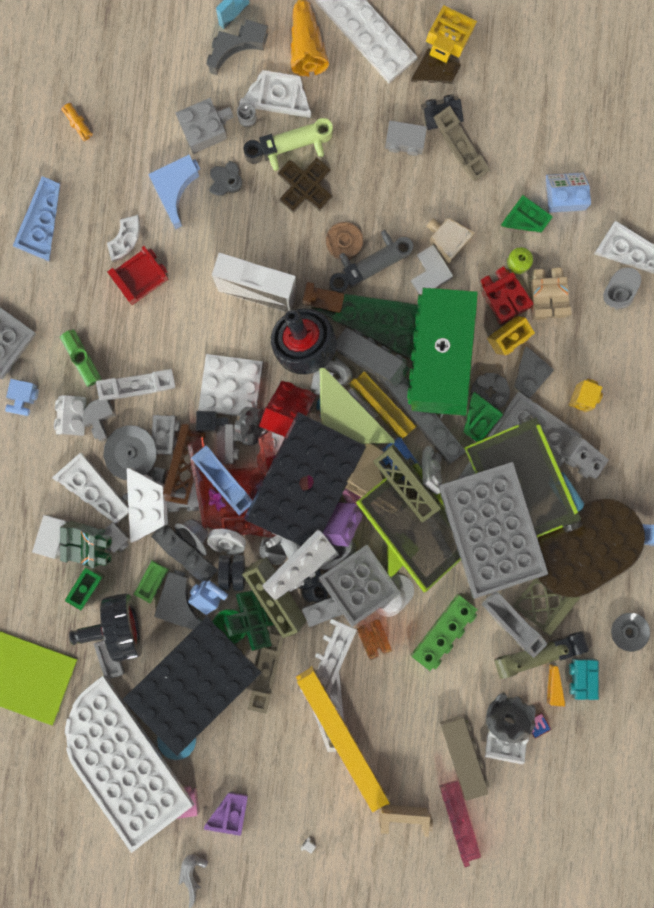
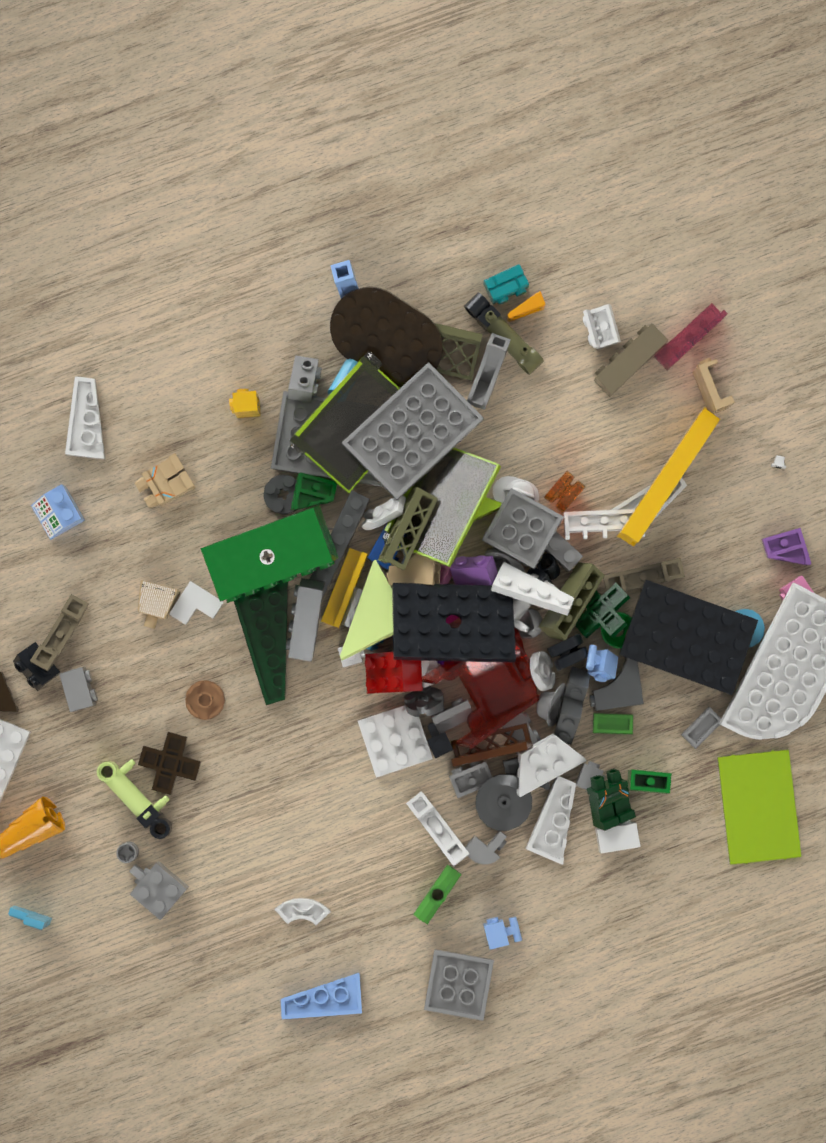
camera: 115 degrees left, 0 degrees up
(70, 415) = (496, 877): white bracket -> none
(77, 121) = (212, 1013): light orange pin -> none
(118, 628) = (670, 731): black wheel -> none
(139, 275) = (332, 878): red panel -> none
(172, 181) = (226, 891): light blue arch -> none
(216, 499) = (508, 699): magenta plant -> none
(222, 480) = (488, 700): light blue arch -> none
(223, 178) = (199, 845): dark grey plate -> none
(251, 36) = (69, 907): dark grey arch -> none
(254, 282) = (290, 760): white tile -> none
(278, 94) = (92, 832): white wing -> none
(303, 341) = (321, 690): black wheel -> none
(322, 298) = (271, 691): reddish brown bracket -> none
(341, 370) = (328, 649): white piece -> none
(357, 272) = (216, 662): dark grey piece -> none
(444, 632) = (527, 431): bright green brick -> none
(505, 296) = (186, 530): red hips -> none
(511, 335) = (222, 500): yellow brick -> none
(518, 711) = (564, 334): dark grey plate -> none
(519, 260) = (148, 531): lime head -> none
(527, 217) = (100, 538): green wing -> none
(531, 373) = (247, 464): dark grey wing -> none
(541, 726) = (568, 307): tile -> none
(622, 288) = (127, 417): light grey piece -> none
(639, 636) = (443, 253): dark grey dish -> none

